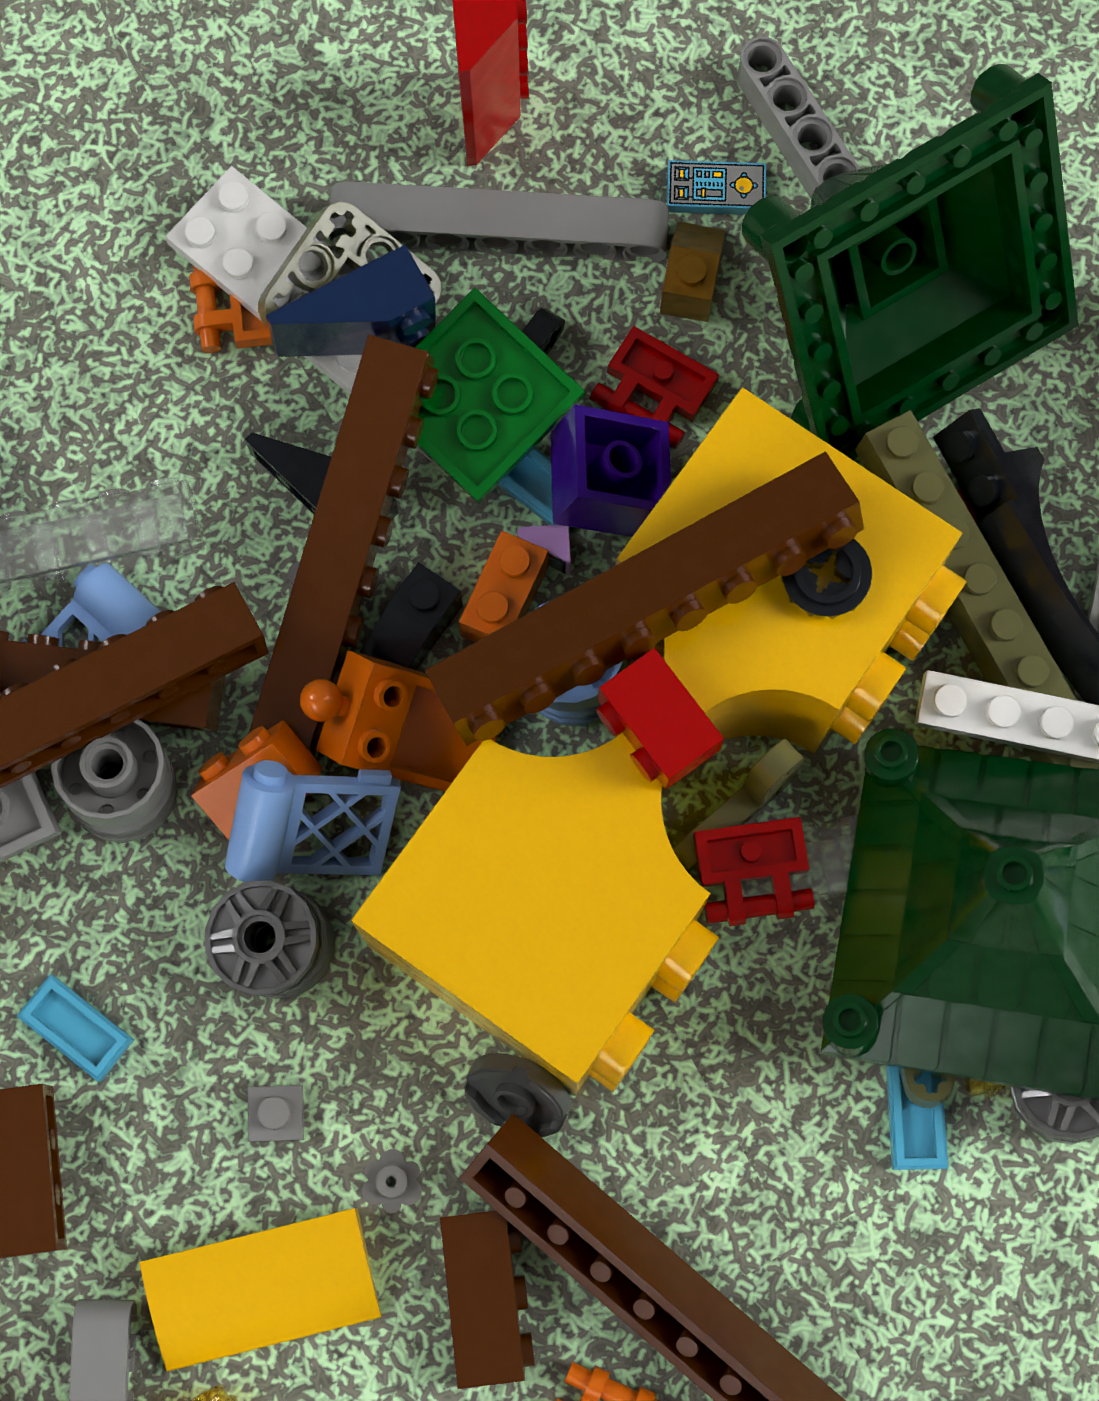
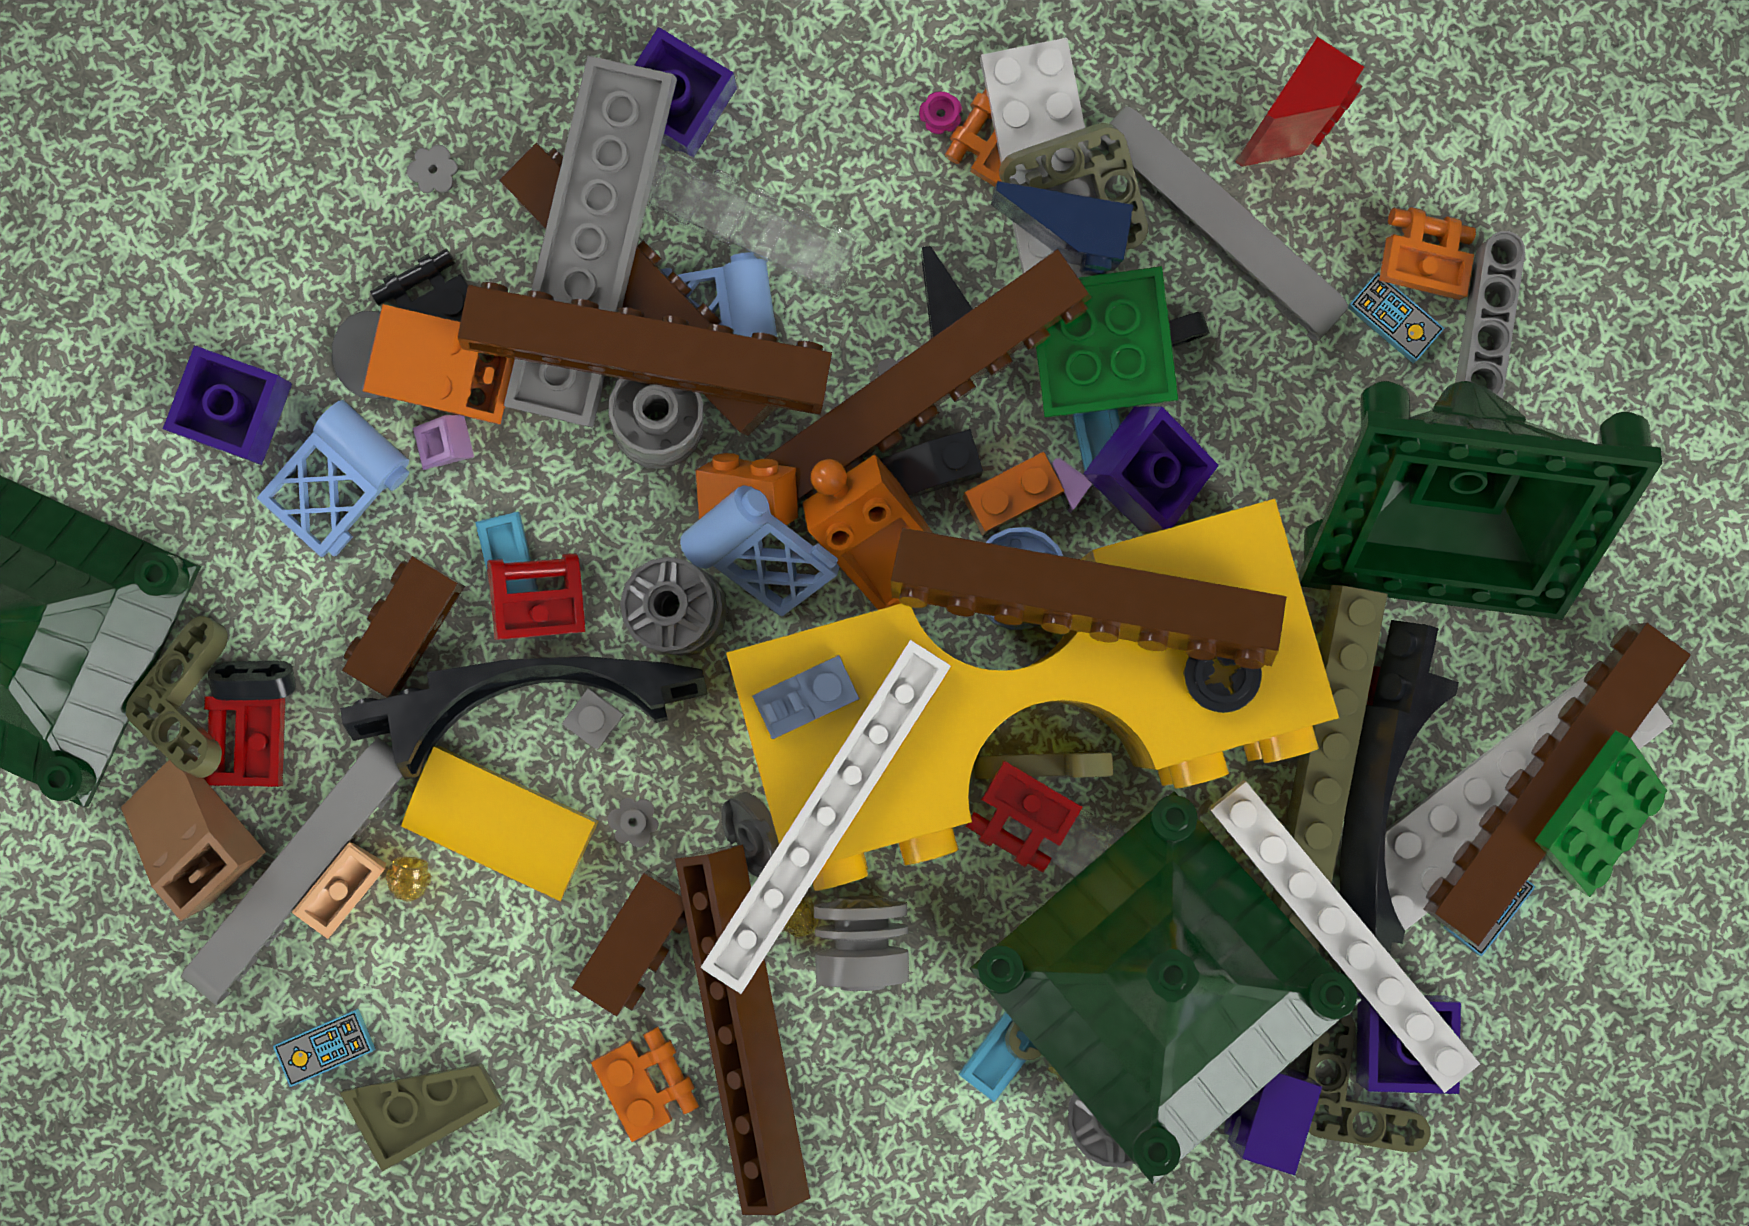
camera: 35 degrees right, 10 degrees up
(107, 1239) = (422, 717): none -> black slope
(142, 1050) = (540, 611): none -> red plate
(164, 305) = (945, 102): none -> dark pink plate
(460, 900) = (805, 697): none -> sand blue plate
(570, 1000) = (825, 817): none -> white plate
(620, 1141) = (802, 920): none -> clear yellow plate
(658, 720) = (1028, 683): red brick -> none
(659, 373) = (1244, 422): red plate -> none
(692, 271) = (1329, 365): pearl gold slope -> none
(703, 1117) = (861, 944): none -> light grey wheel
(705, 123) = (1424, 265): none -> orange plate

